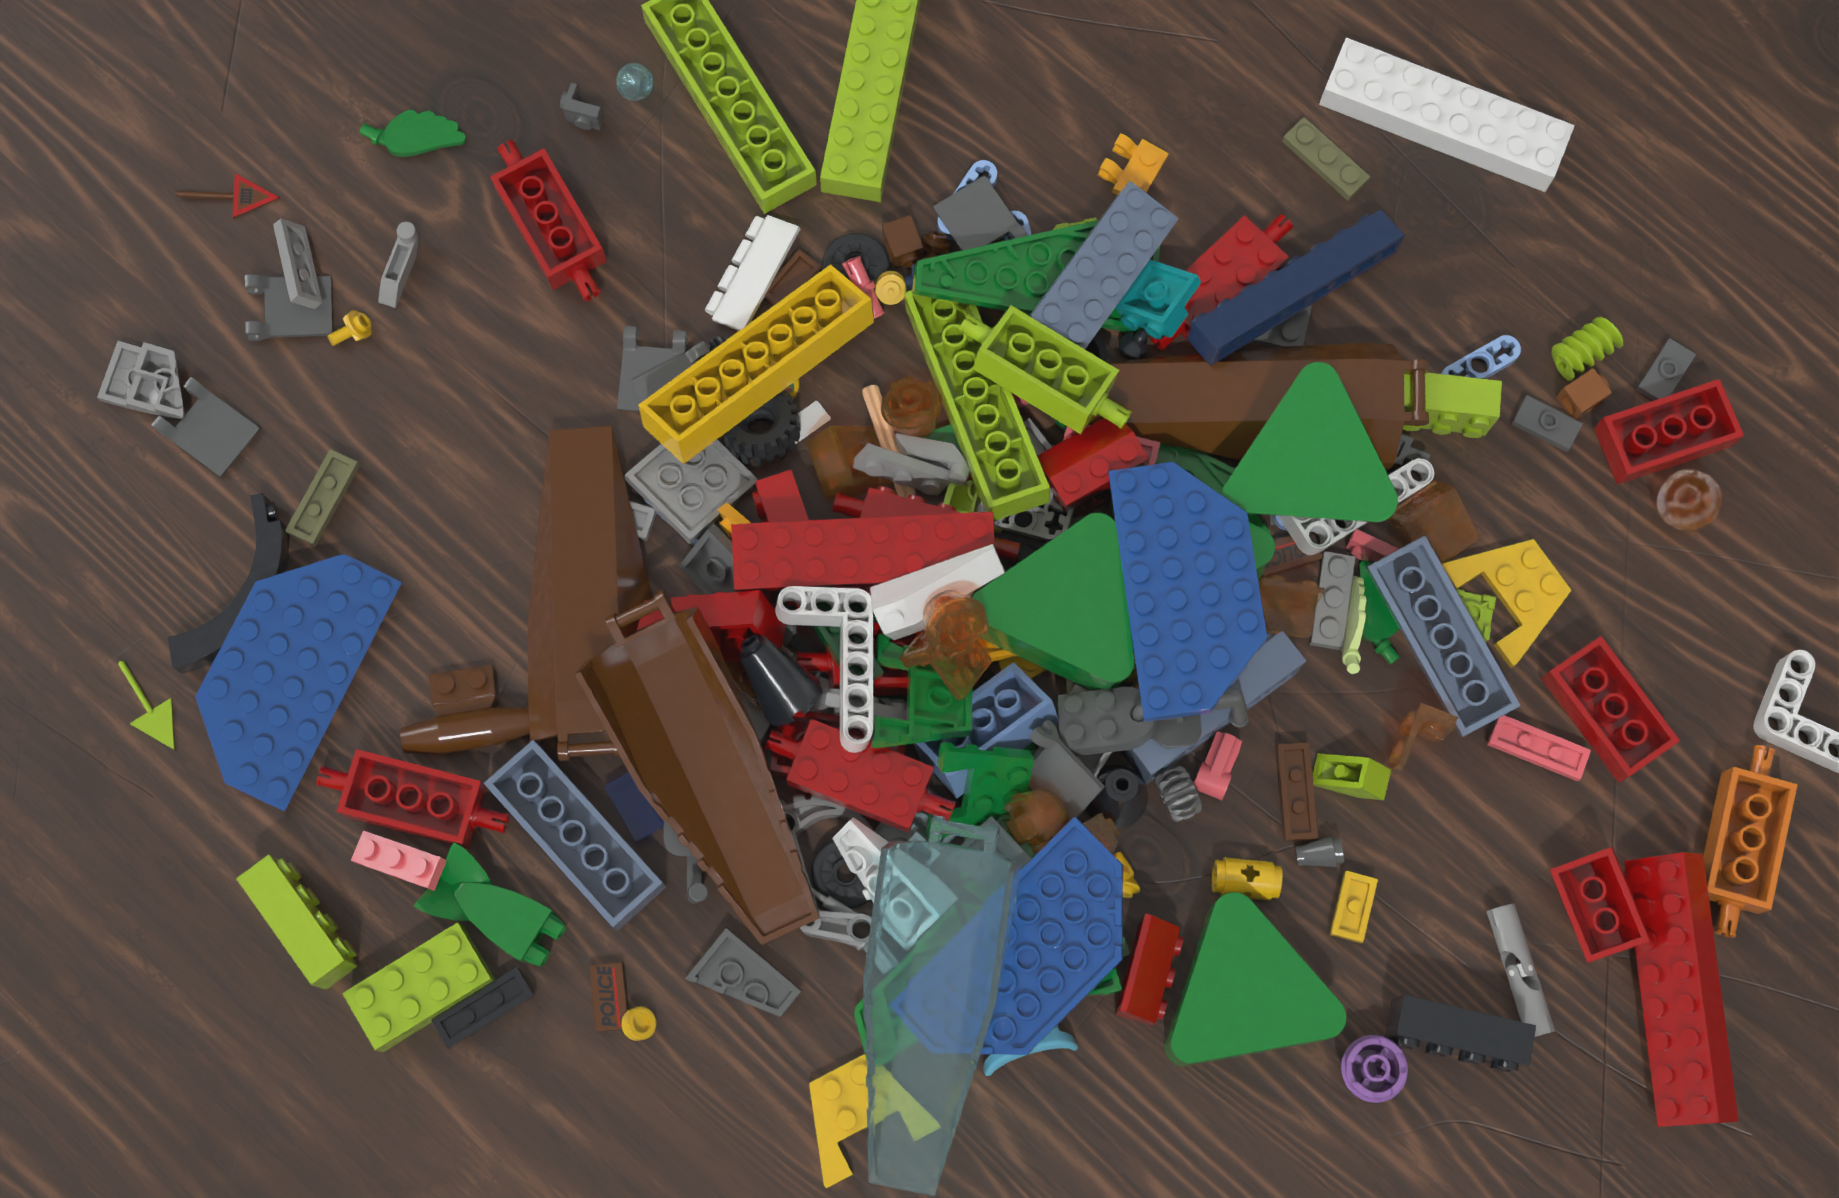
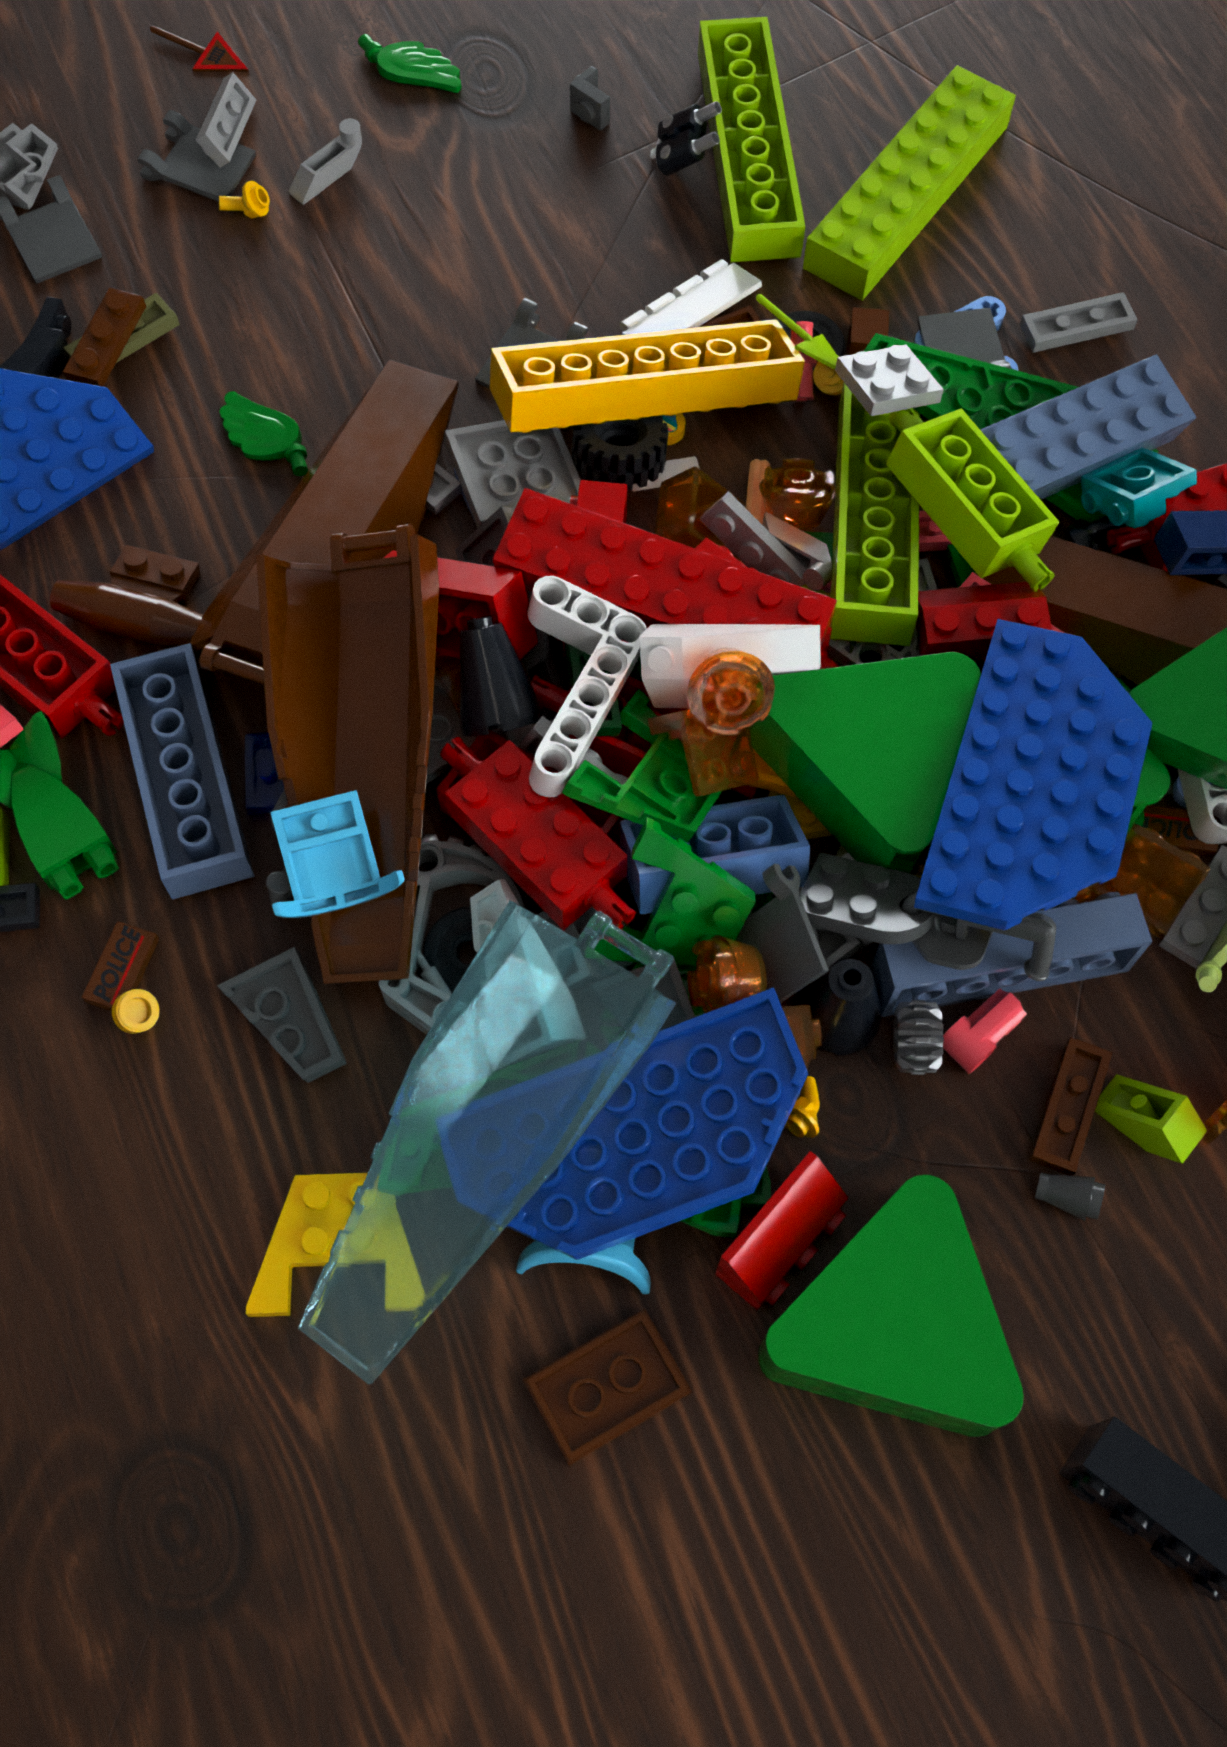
camera: 25 degrees right, 10 degrees down
(315, 510) = (105, 337): none -> reddish brown plate
(478, 530) = (263, 432): none -> green animal
(548, 219) = (501, 176): red brick -> none
(634, 82) = (658, 94): clear light blue piece -> none
(676, 121) = (684, 138): none -> black piece
(727, 860) = (328, 857): none -> medium azure piece
(873, 277) = (815, 347): none -> lime piece
(947, 302) = (888, 380): none -> light grey plate
(1055, 153) = (1078, 322): none -> light grey plate
(1080, 1121) = (607, 1386): none -> reddish brown tile
(1141, 169) = (1179, 362): light orange plate -> none
(1262, 877) = (980, 1189): yellow piece -> none
(1353, 907) = (1086, 1281): yellow plate -> none
(1374, 1068) = (1030, 1503): medium lavender cone -> none

